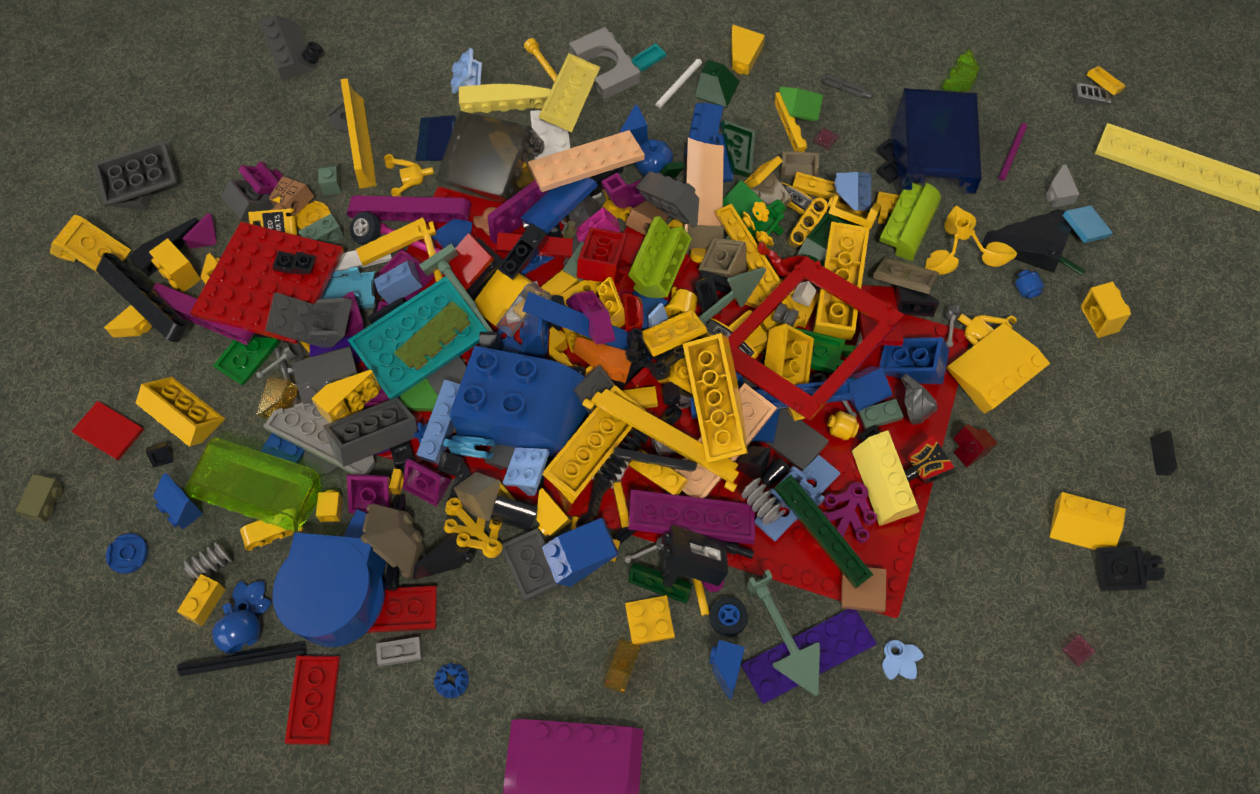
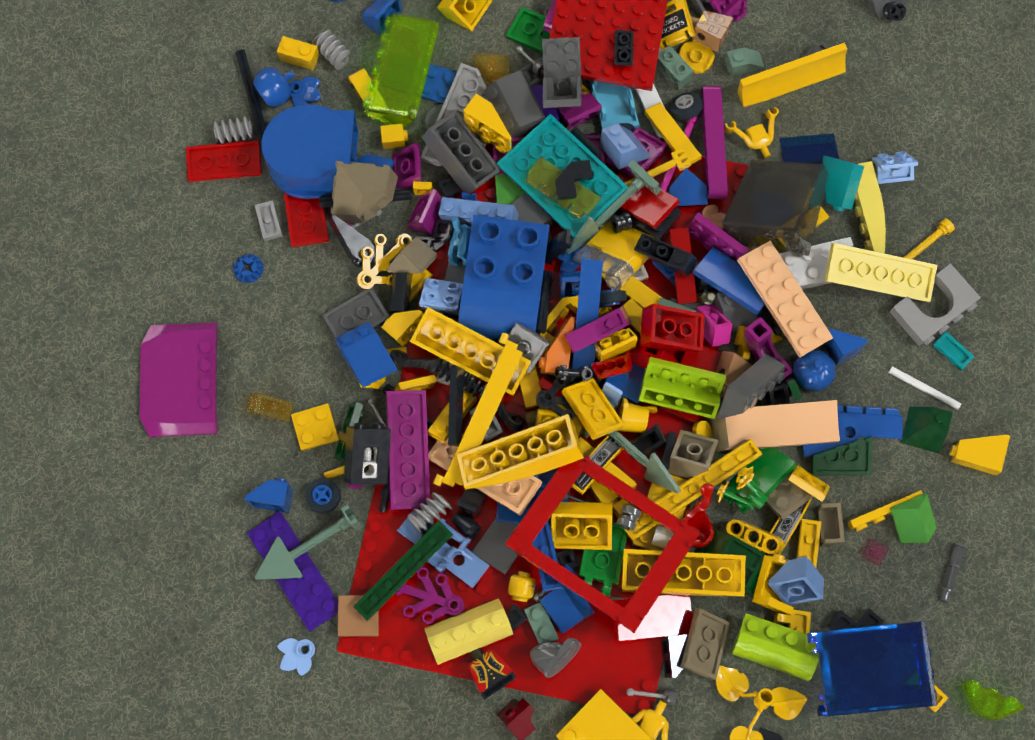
camera: 80 degrees right, 10 degrees up
(276, 683) = (233, 130): none -> light grey piece
(429, 329) = (566, 181): none -> black tile
(472, 104) = (841, 182): none -> teal slope
(479, 292) = (621, 222): none -> black wheel
(919, 358) = (603, 657): blue slope -> none

